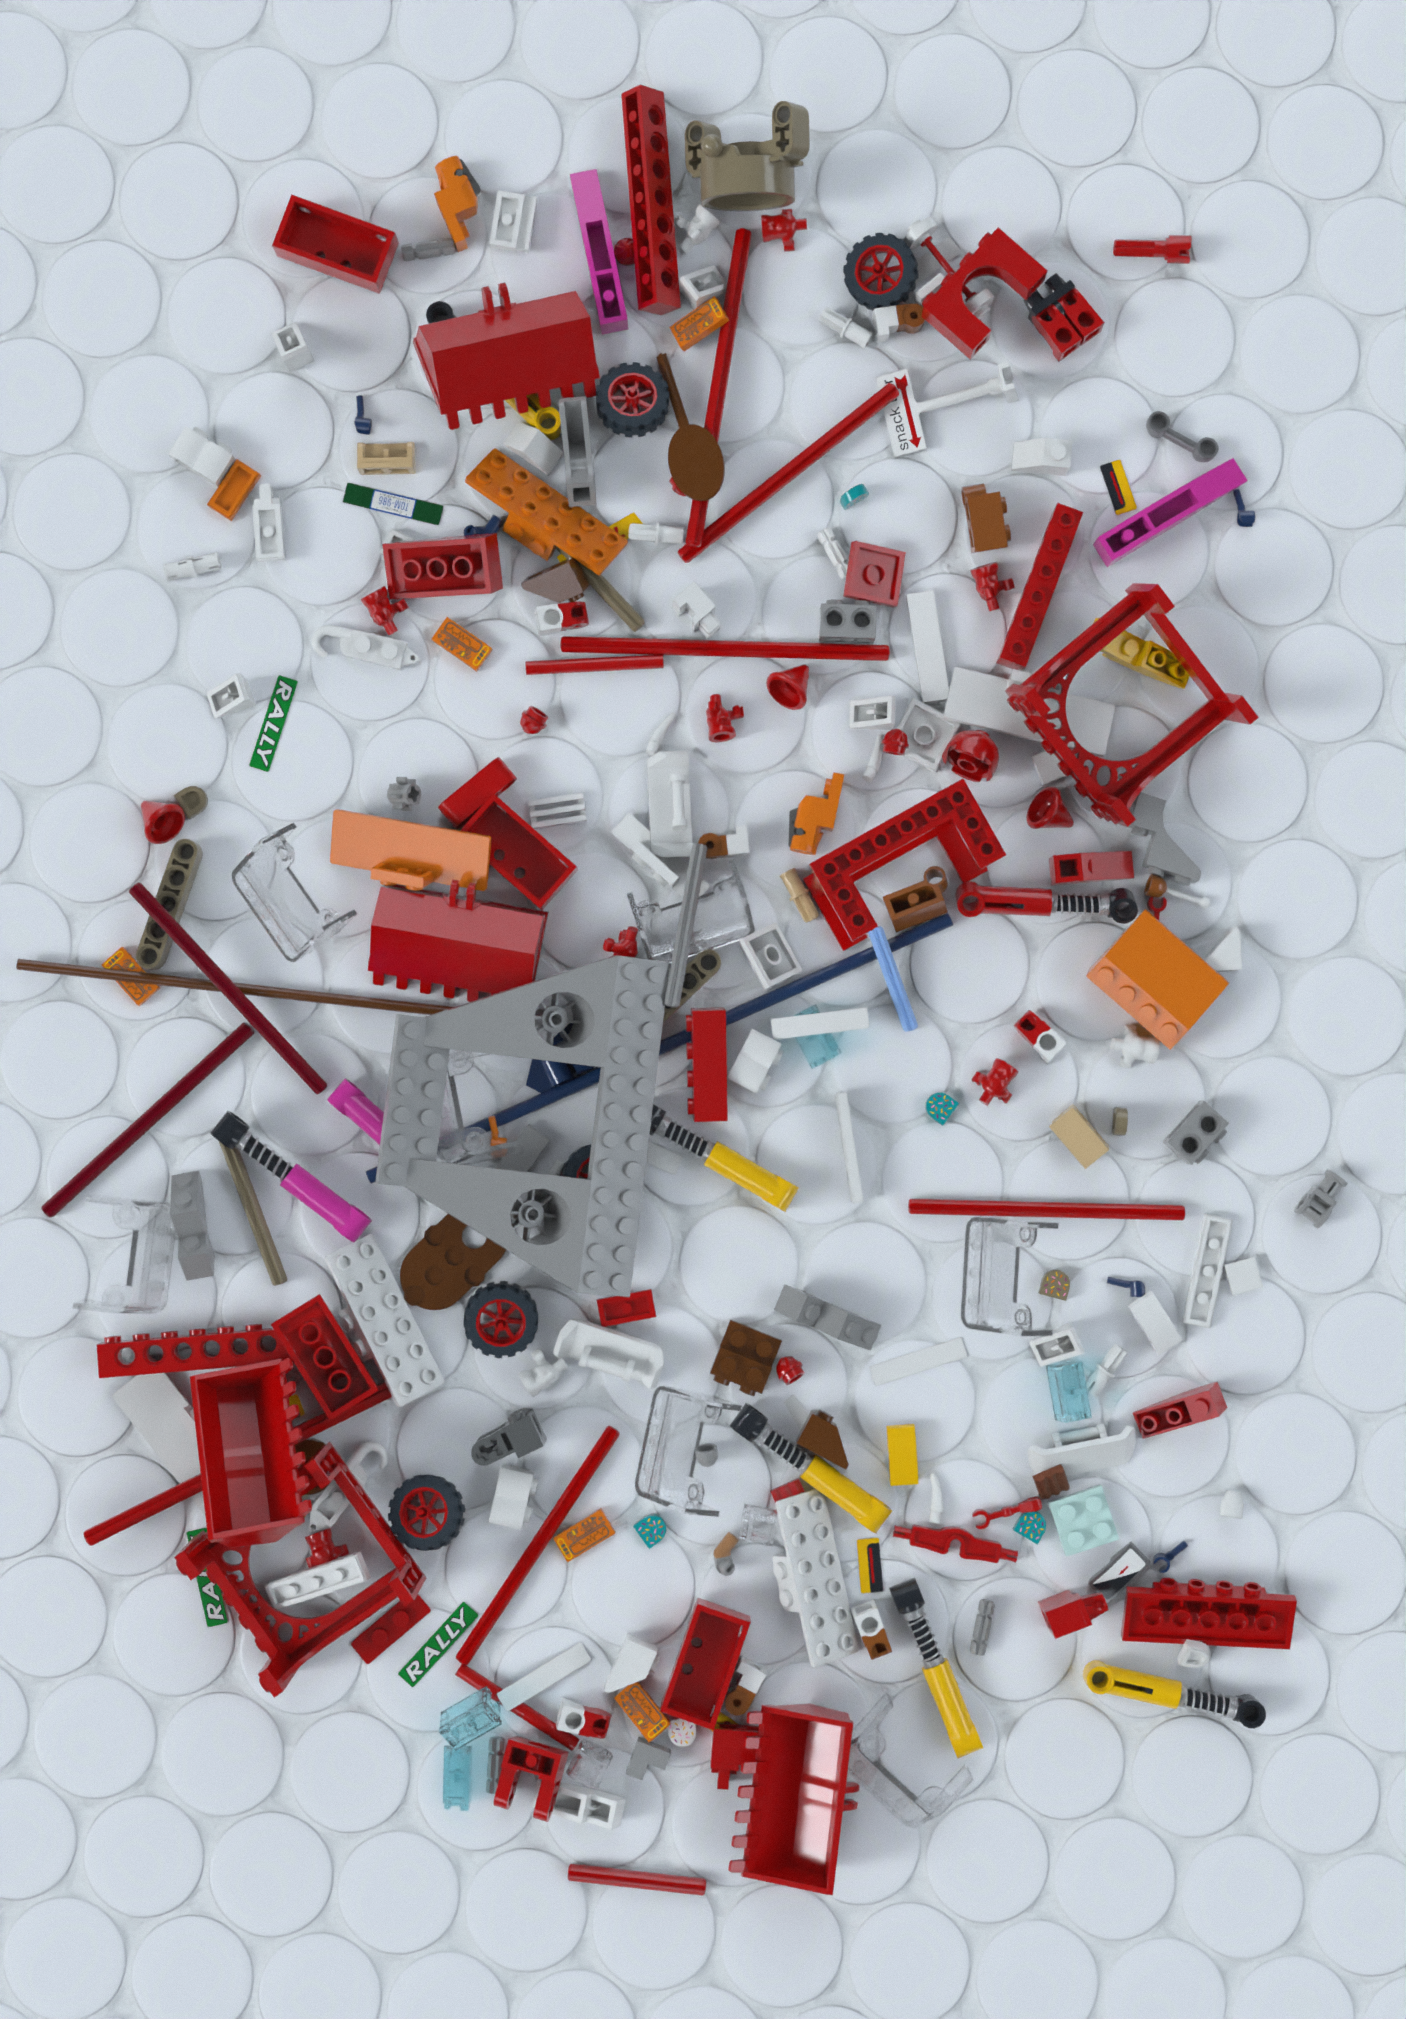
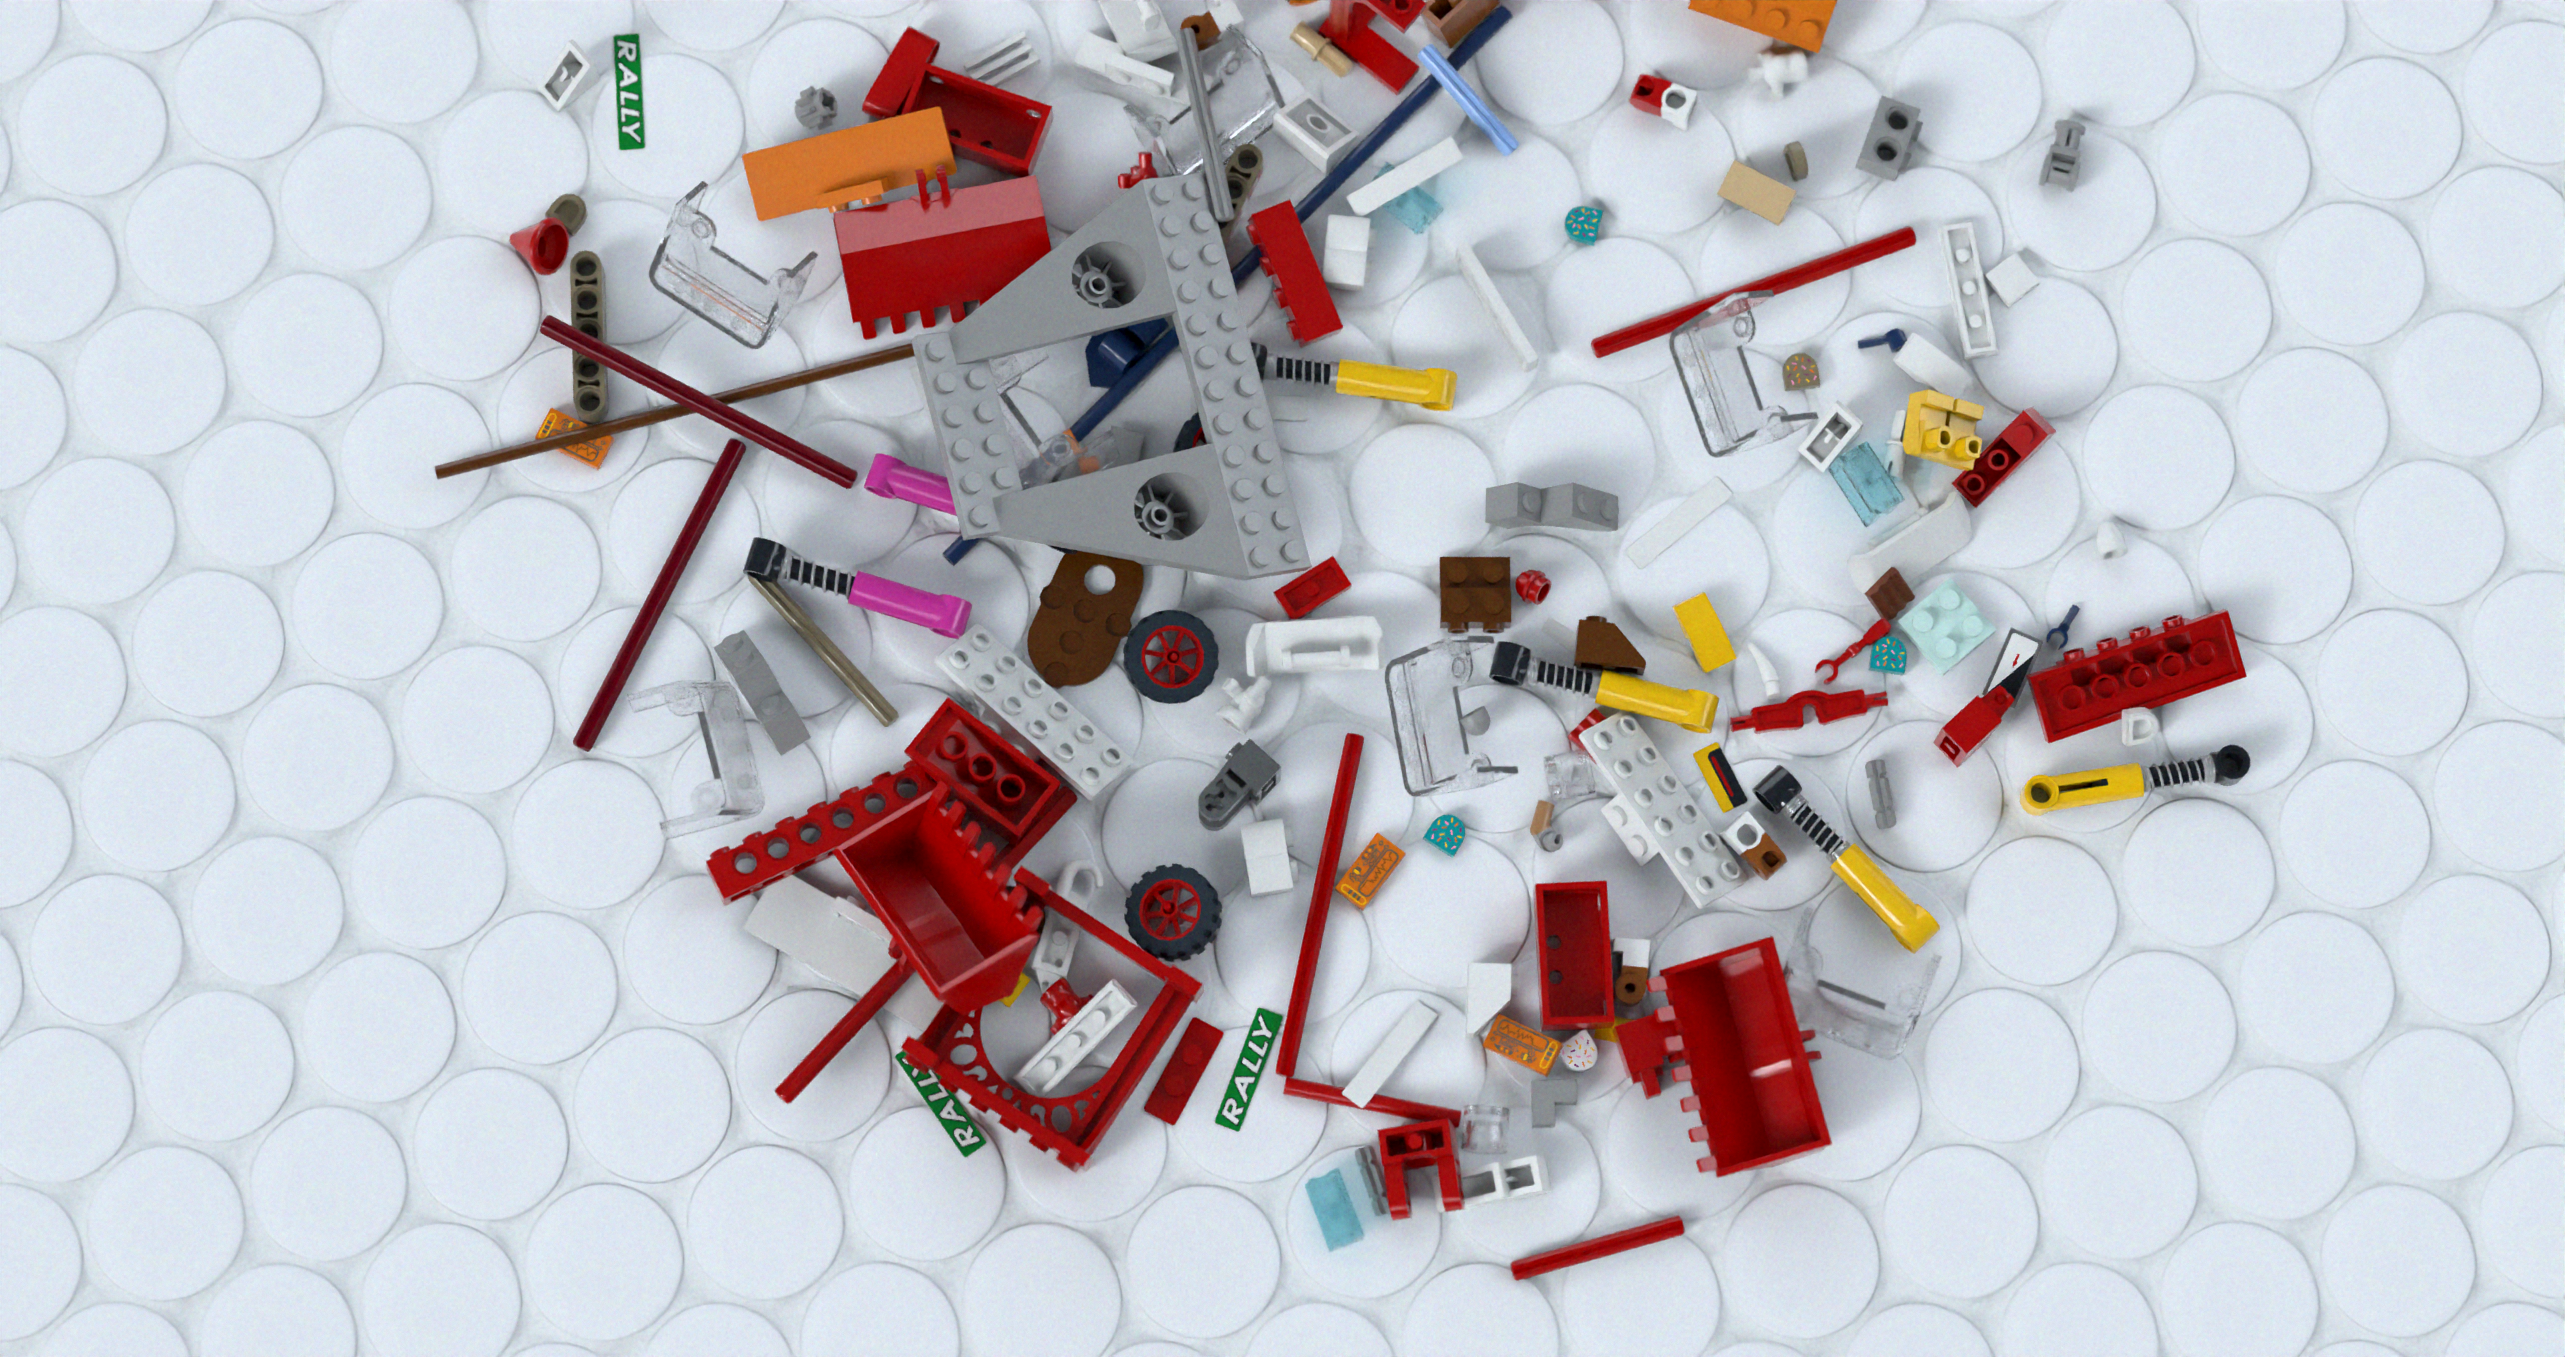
camera: 25 degrees left, 10 degrees down
(470, 1719) = (1322, 1131): clear light blue hinge -> none
(582, 1719) = (1455, 1083): leg -> none
(996, 1081) = (1635, 169): red piece -> none
(1141, 1377) = (1942, 429): none -> yellow hips

